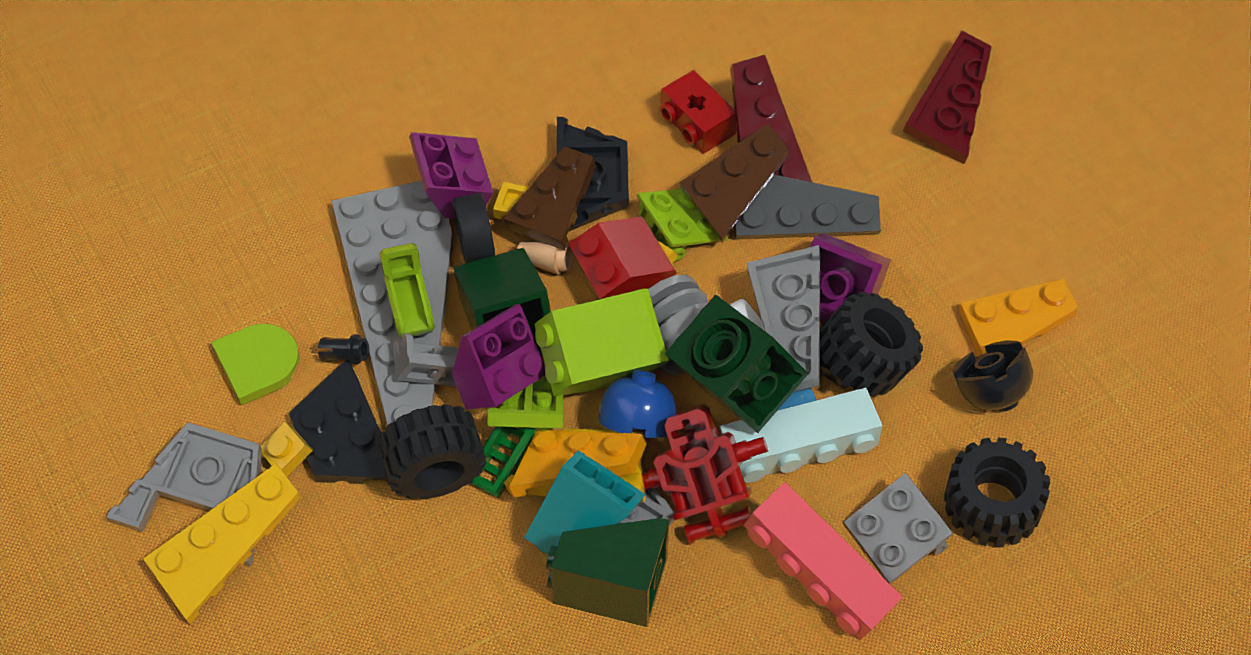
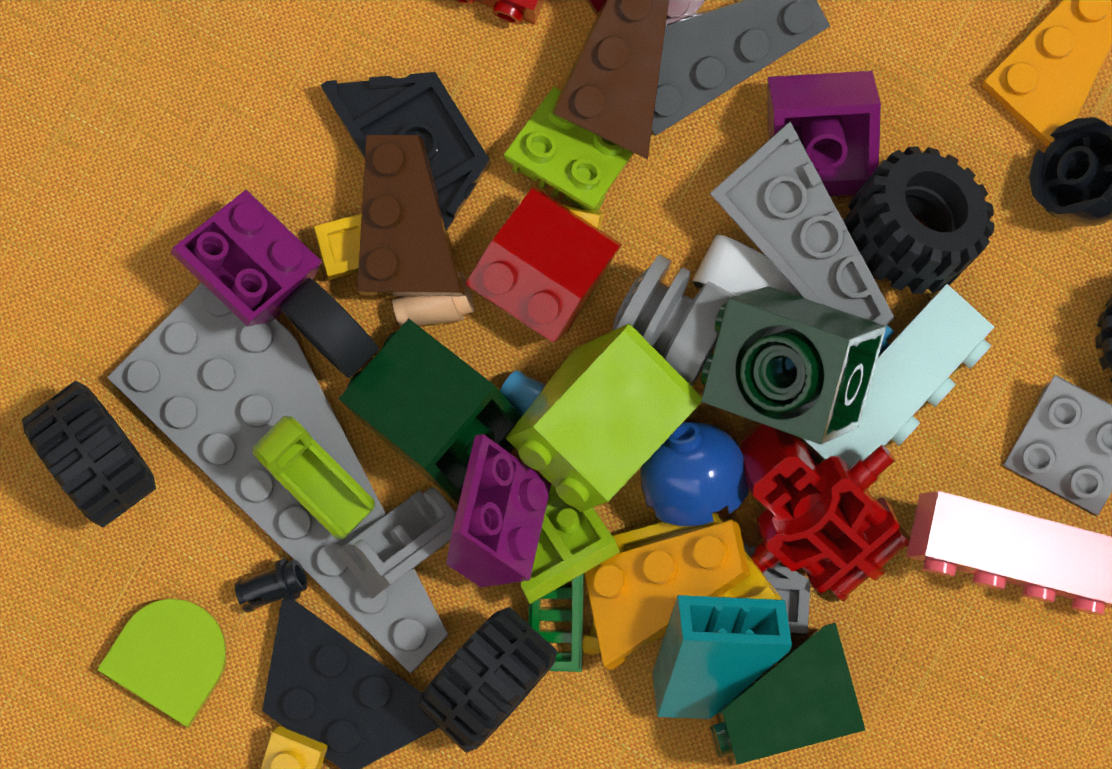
camera: 30 degrees left, 25 degrees up
(289, 219) = (88, 454): none -> black tyre

